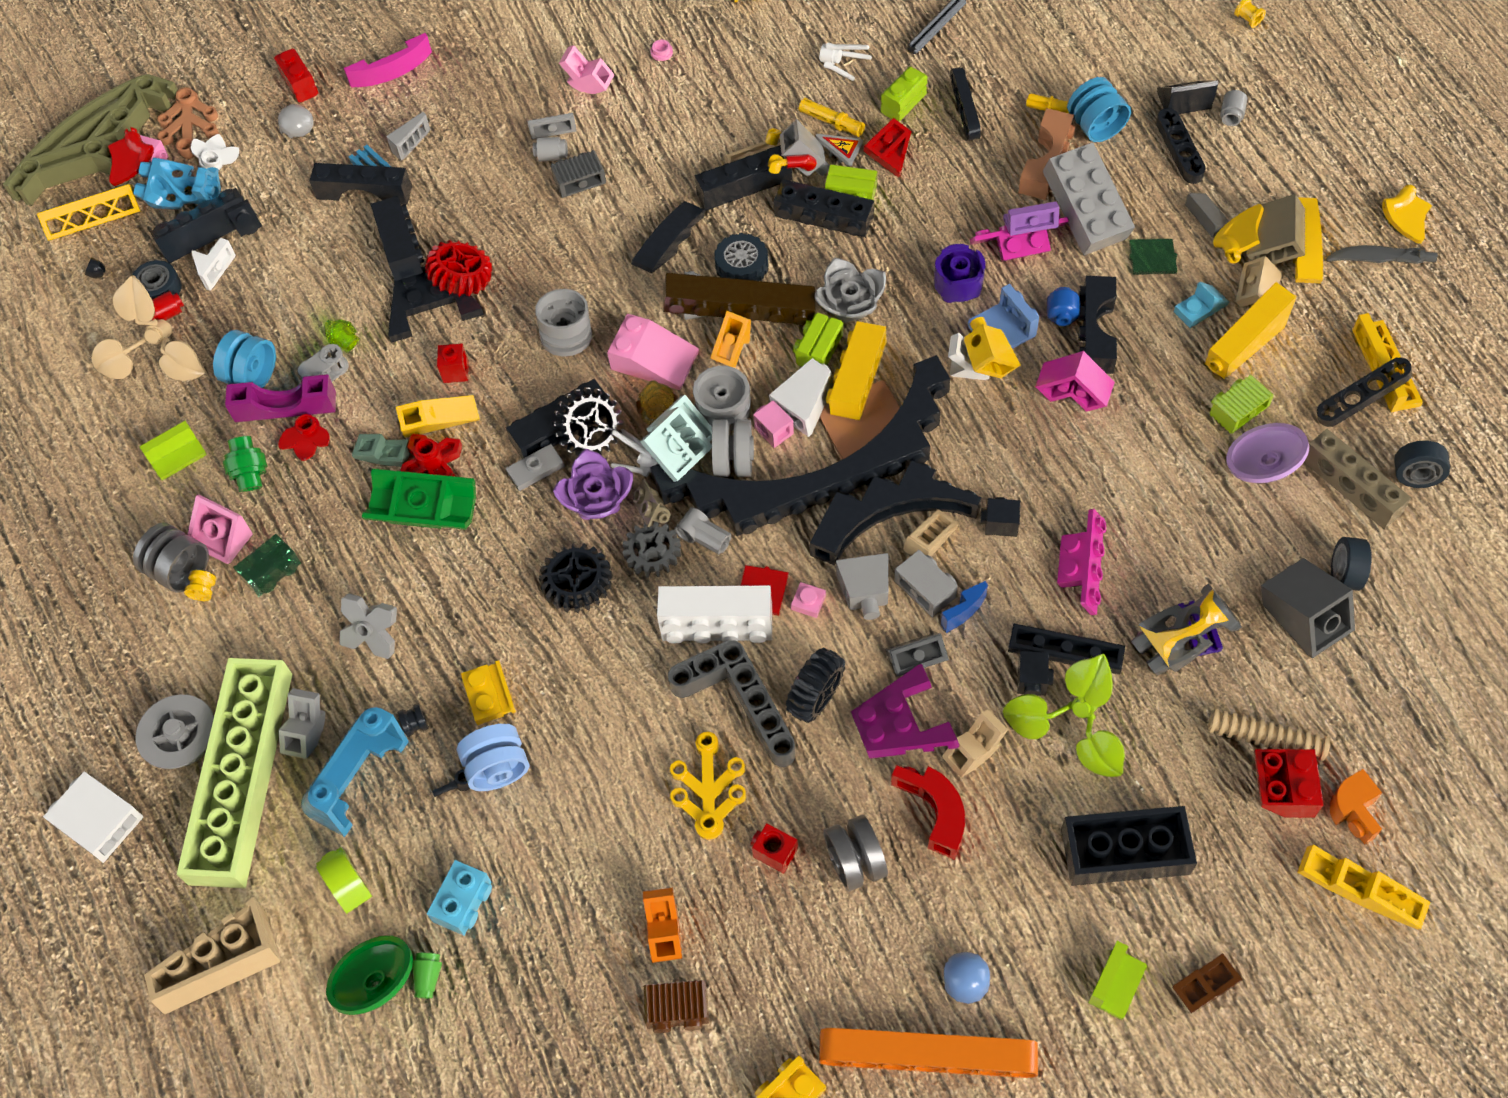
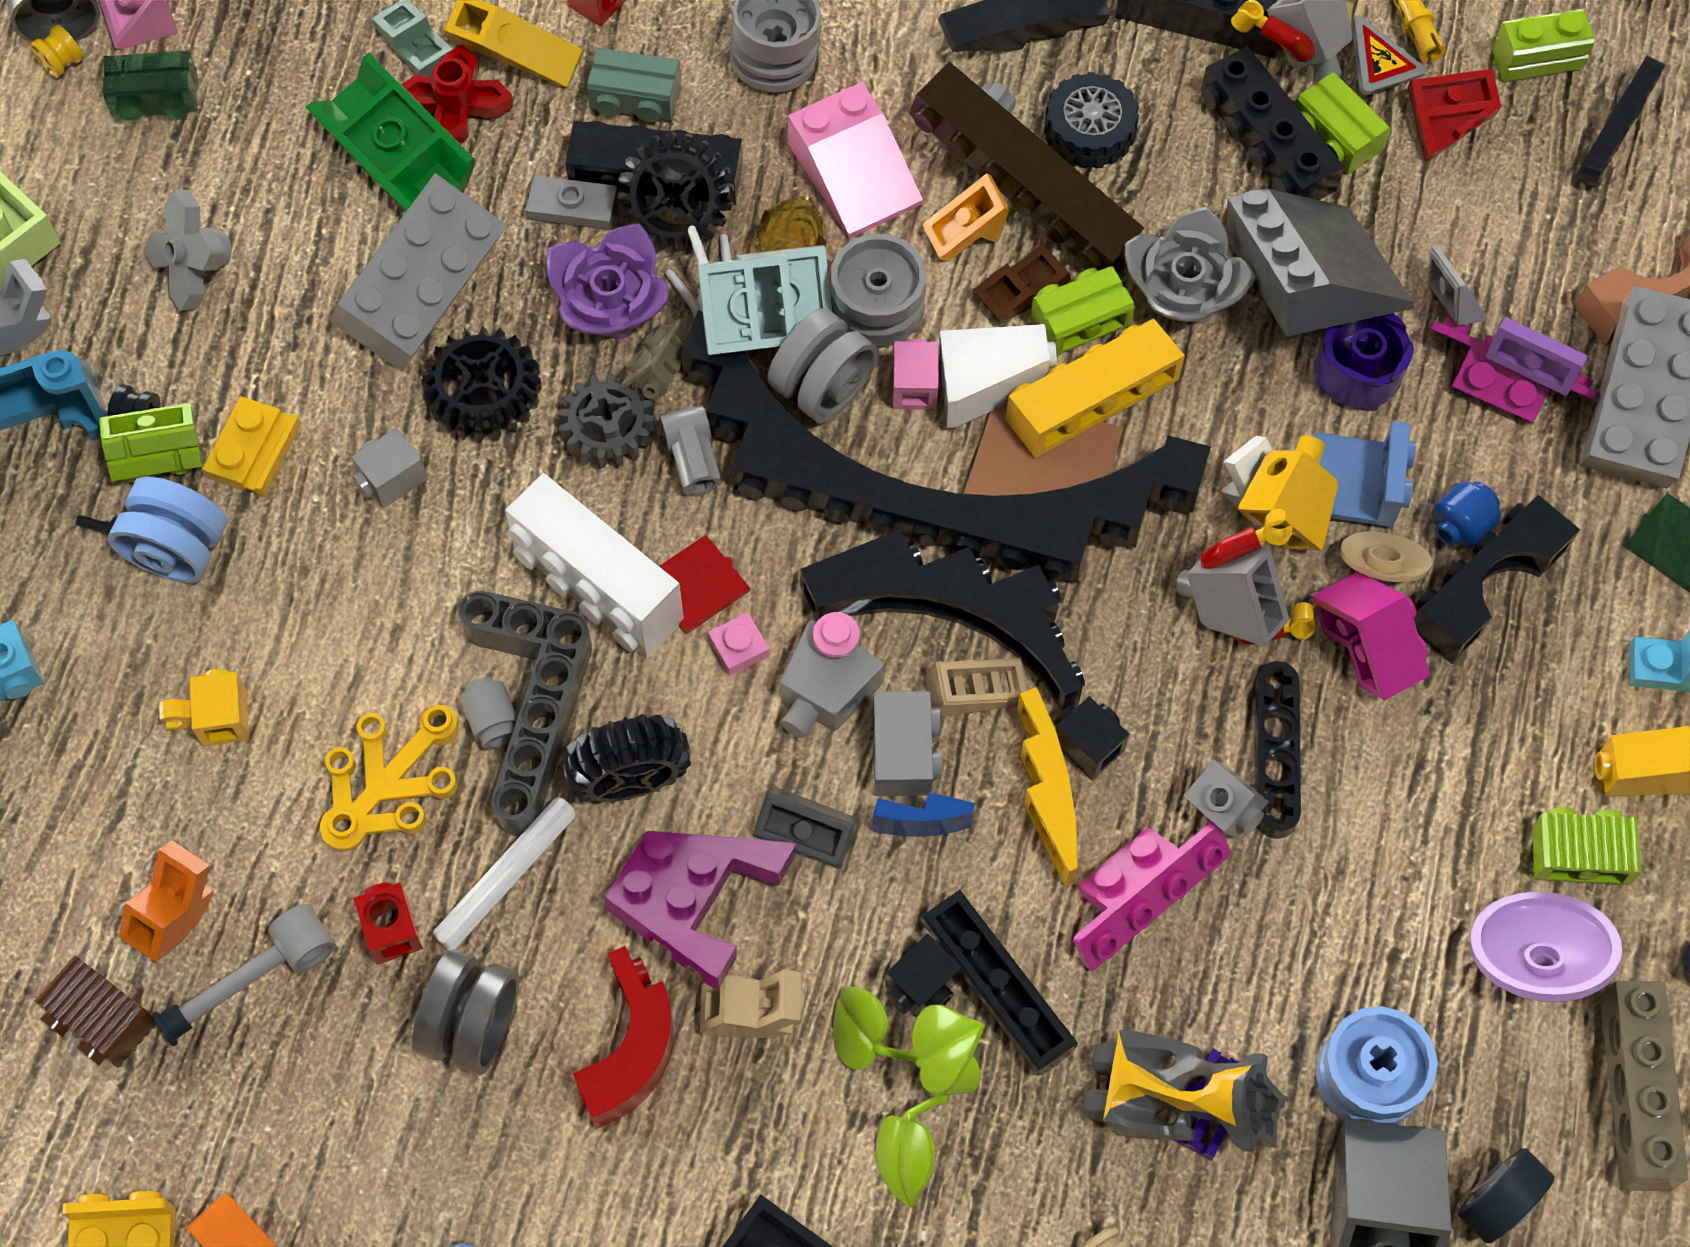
camera: 35 degrees right, 5 degrees up
(440, 726) = (150, 442): none -> lime brick
(498, 549) = (417, 272): none -> light grey brick
(514, 393) = (634, 85): none -> sand green brick
(568, 649) = (388, 468): none -> light grey brick
(594, 822) = (215, 708): none -> yellow brick
(727, 718) = (489, 712): none -> light grey brick
(739, 891) = (297, 939): none -> light grey piece
(780, 351) = (1013, 289): none -> reddish brown slope
(804, 784) = (504, 874): none -> white axle
(857, 556) = (836, 635): none -> bright pink plate
(900, 249) = (1312, 261): none -> dark grey slope
(968, 218) = (1452, 290): none -> light grey slope
(1005, 403) = (1240, 588): none -> light grey torso
(1013, 556) = (1050, 799): none -> yellow slope
(1048, 348) = (1386, 556): none -> tan dish
(1084, 459) = (1281, 749): none -> black beam
(1085, 496) = (1227, 799): none -> light grey brick
(1251, 555) = (1395, 1047): none -> light blue wheel

